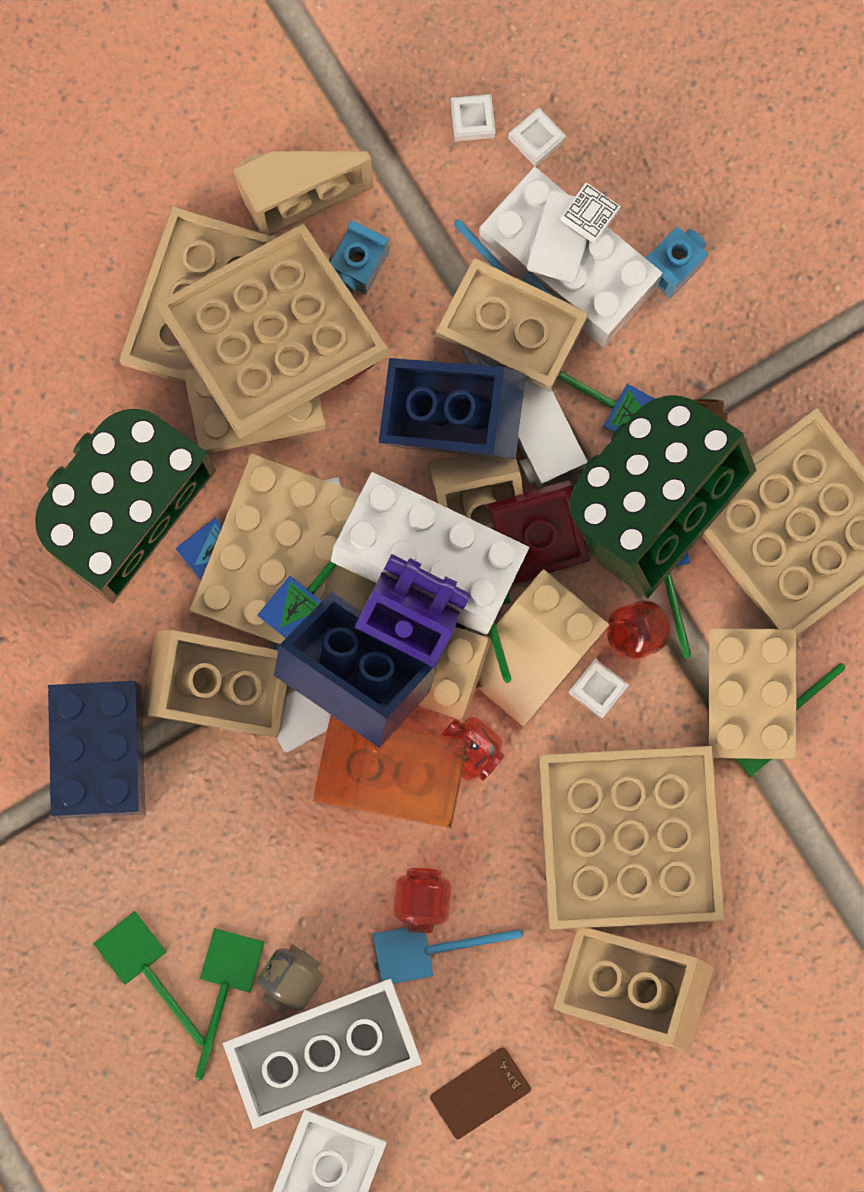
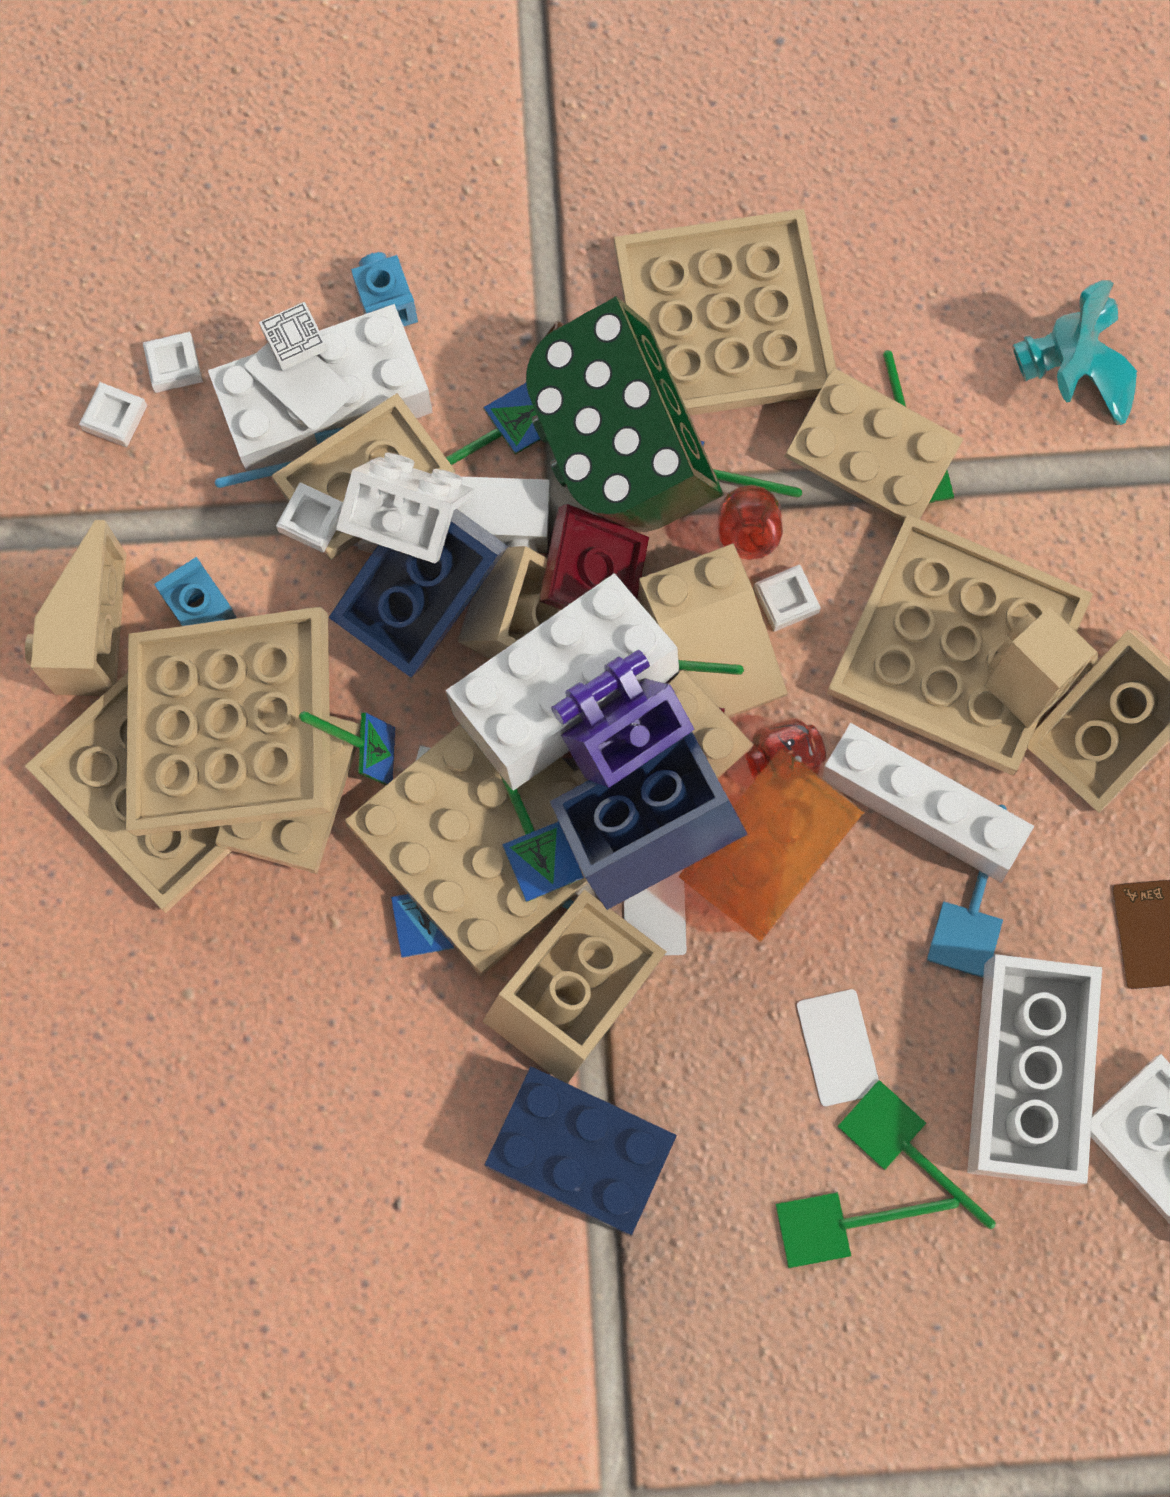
camera: 60 degrees left, 5 degrees down
(119, 498) = (317, 982): dark green brick -> none
(274, 899) = (838, 1046): none -> white sticker
(290, 979) = (936, 1068): dark tan head -> none
(316, 445) = (374, 744): none -> piece
(422, 899) = (920, 885): clear red head -> none
(455, 304) = (310, 517): none -> white tile
(487, 872) = (926, 802): none -> white brick
(493, 364) = (402, 505): none -> white bracket
(638, 906) = (1039, 665): none -> tan wedge

